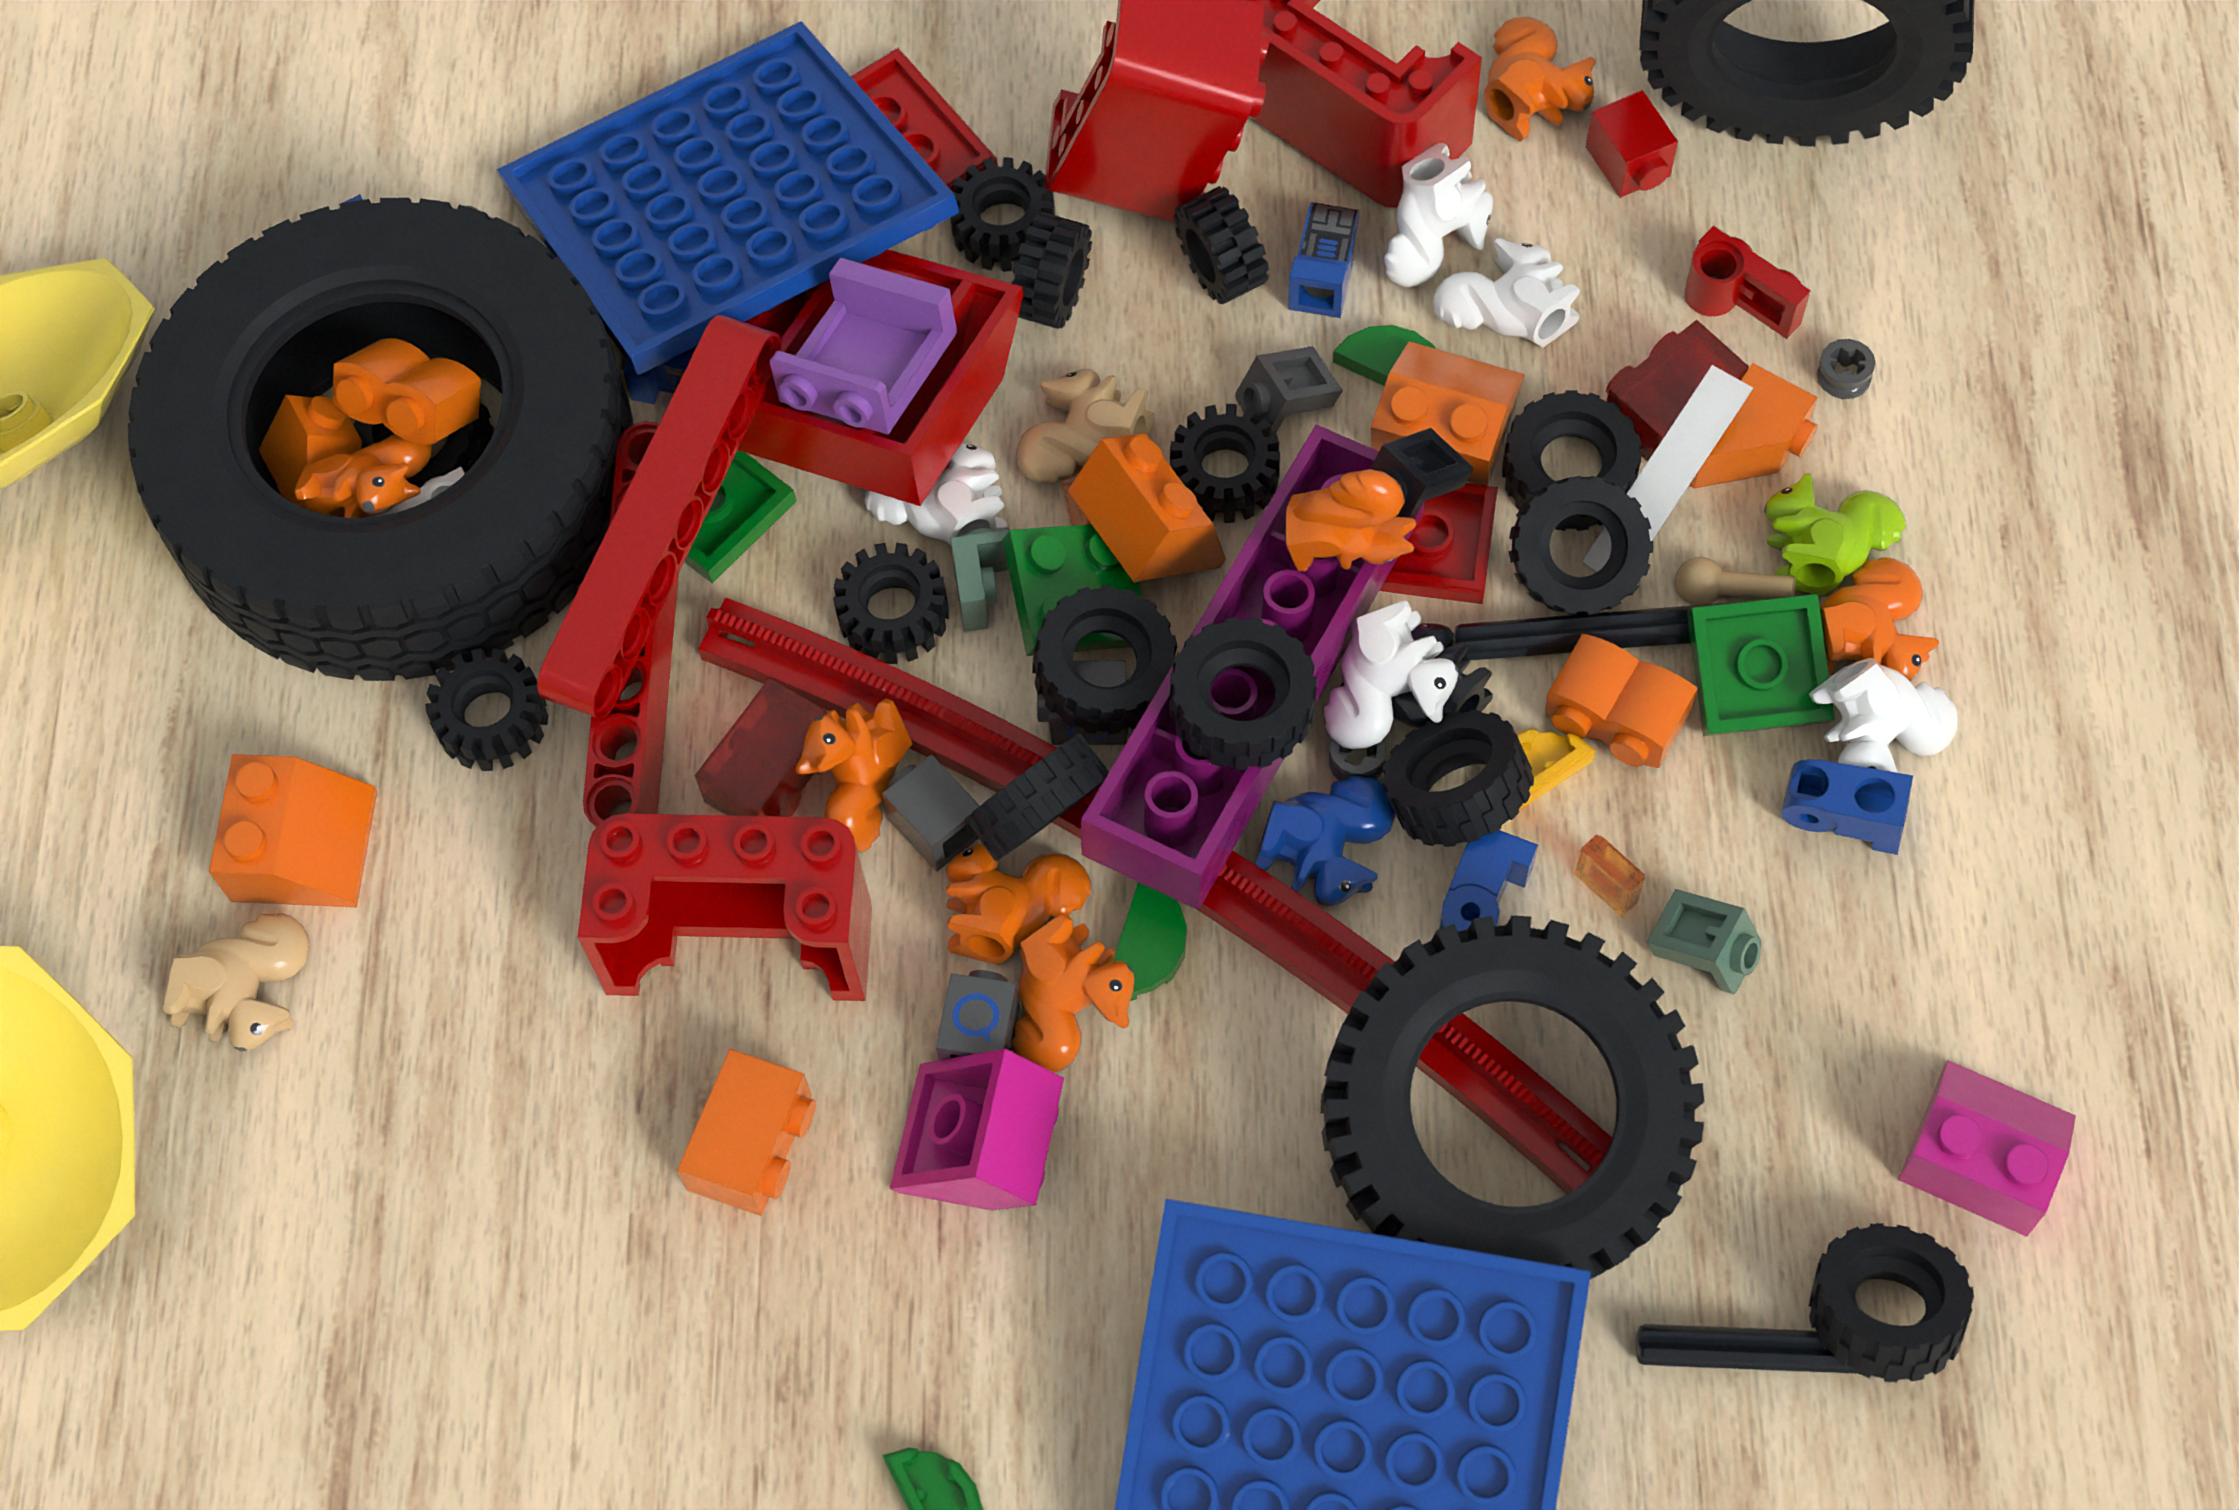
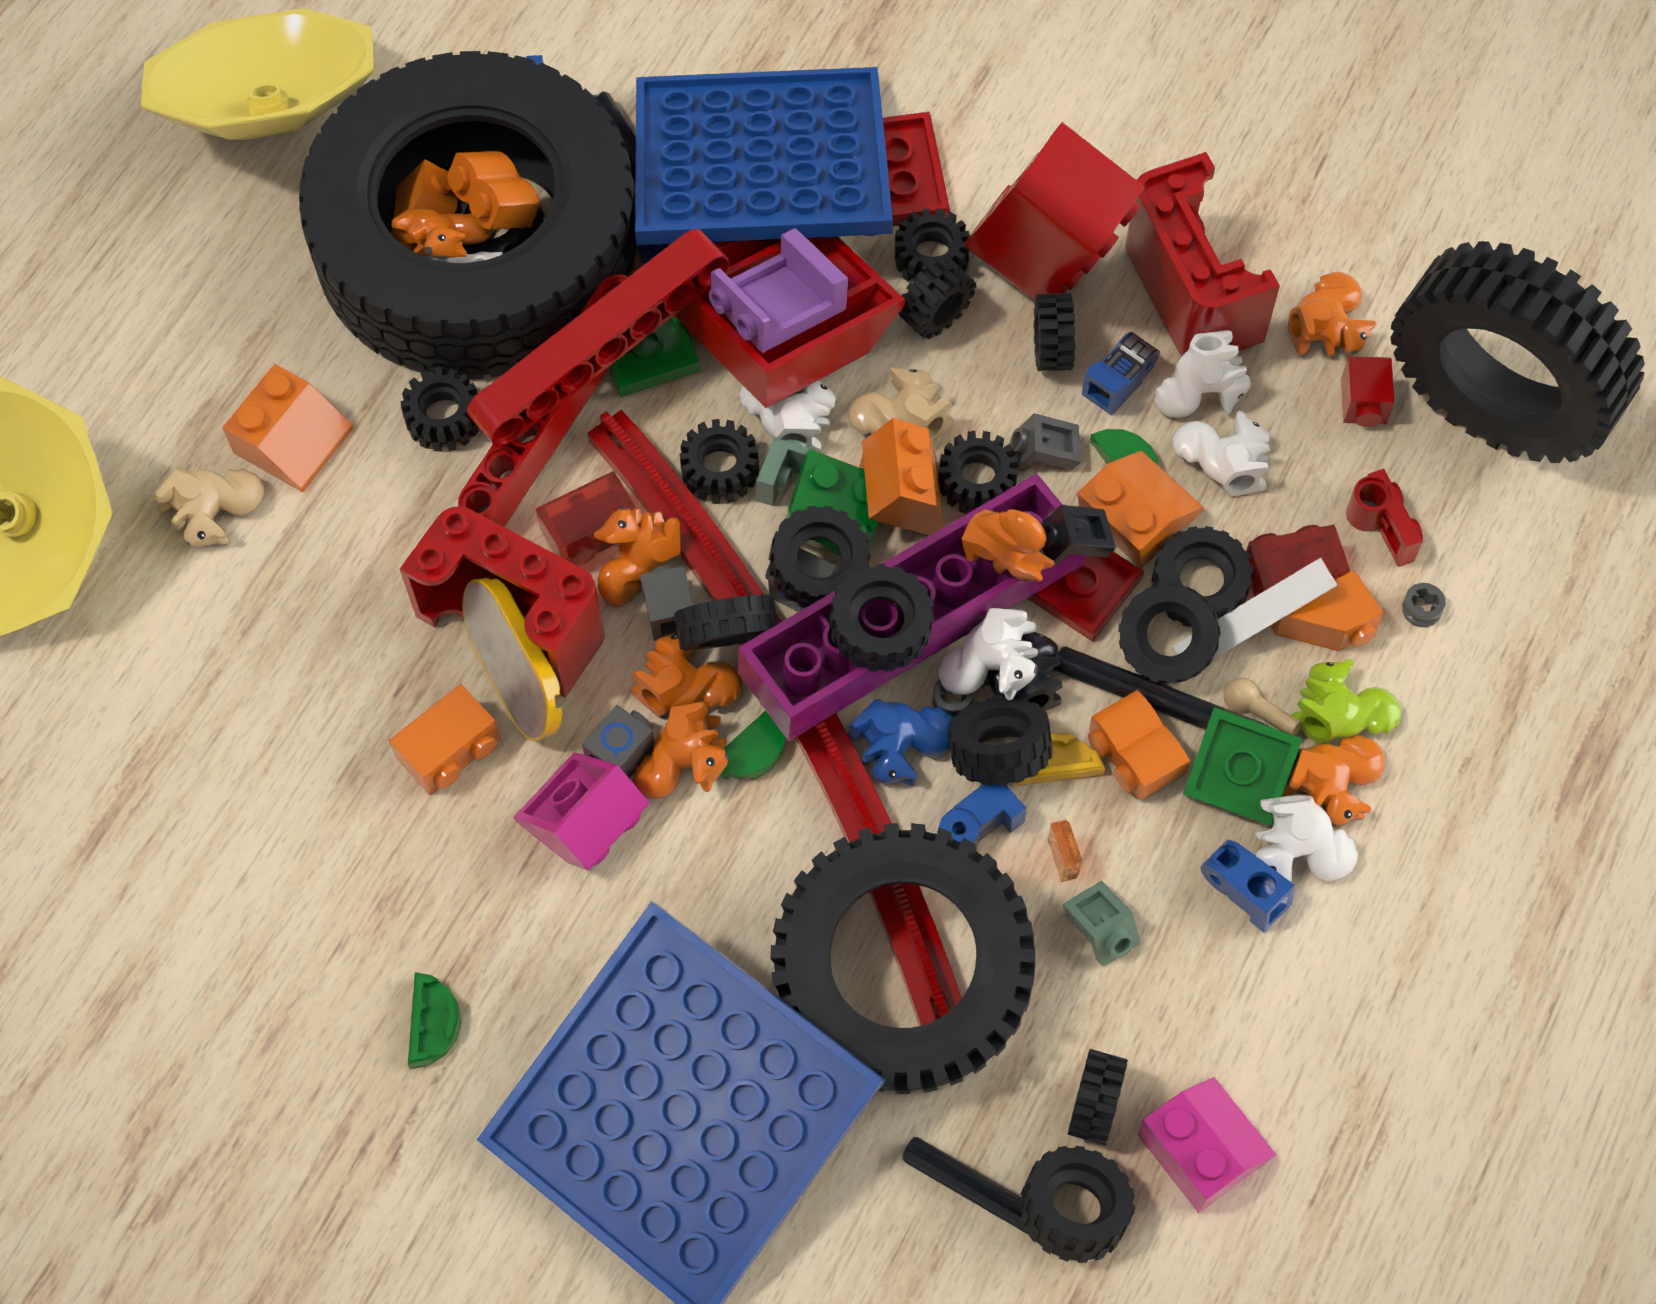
camera: 25 degrees right, 0 degrees up
(777, 982) = (510, 659): none -> flat silver tile
(1838, 1156) = (1097, 1097): none -> black tyre

